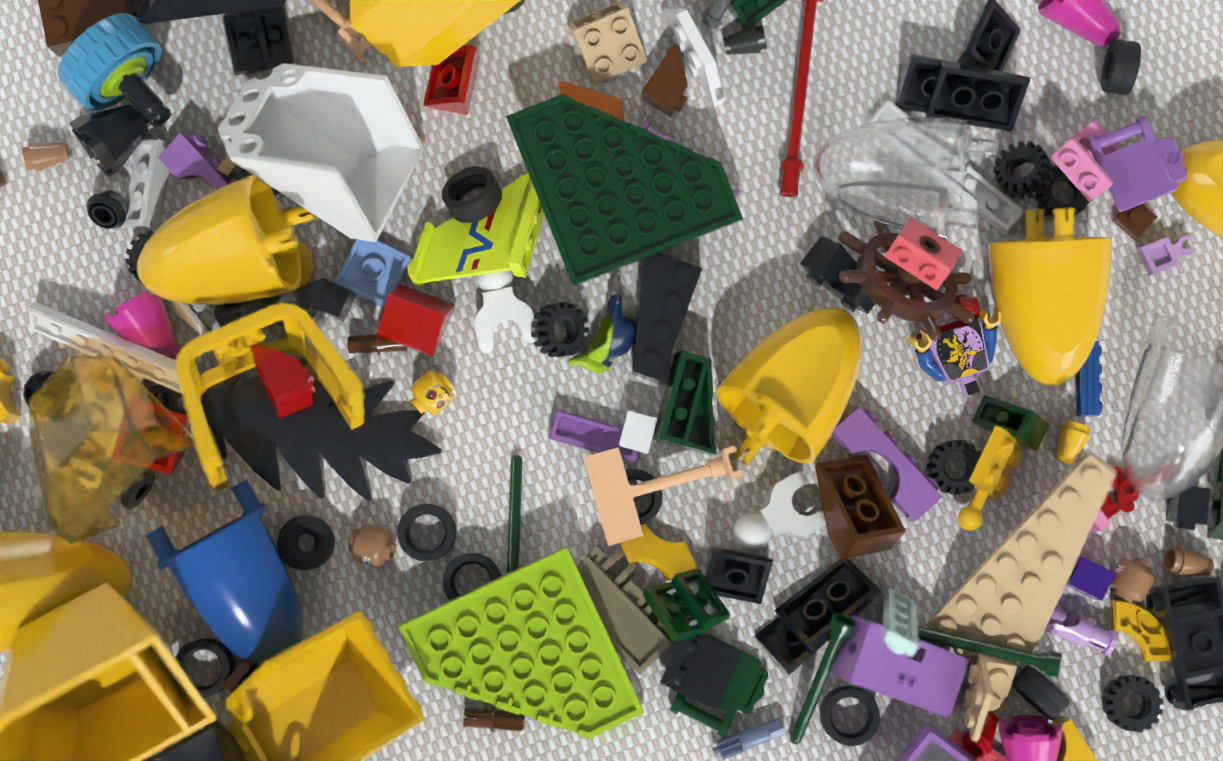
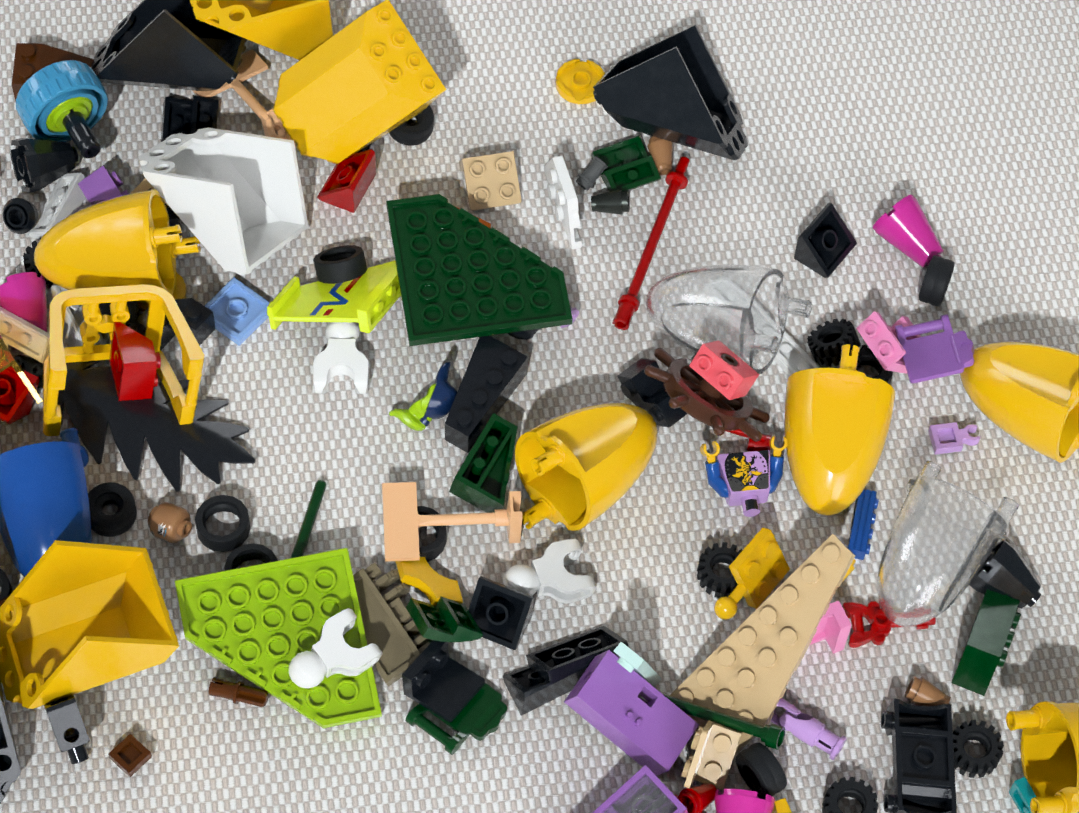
camera: 10 degrees right, 25 degrees down
(372, 344) = (227, 366): reddish brown axle -> none
(415, 319) = (261, 351): red slope -> none
(432, 392) = (260, 411): yellow head -> none
(574, 327) = (377, 388): black tyre -> none
(581, 673) = (333, 654): none -> white piece
(588, 434) = (383, 469): medium lavender plate -> none
(637, 432) = (438, 478): white panel -> none
(668, 84) = (533, 220): reddish brown slope -> none
(749, 738) = (475, 760): sand blue piece -> none
(840, 628) = (580, 662): dark green piece -> none
(857, 507) = (622, 580): reddish brown slope -> none
(872, 712) = (575, 737): black tyre -> none
(912, 491) = (640, 524): medium lavender arch -> none
(960, 92) = (804, 272): black slope -> none
(1021, 423) = (791, 539): dark green slope -> none
(1090, 579) = (827, 686): dark purple brick -> none
(1132, 580) = (869, 696): medium nougat head -> none
(1135, 220) = (930, 406): reddish brown plate -> none
(1142, 628) = (872, 744): yellow tile -> none
(1189, 508) = (934, 645): black brick -> none

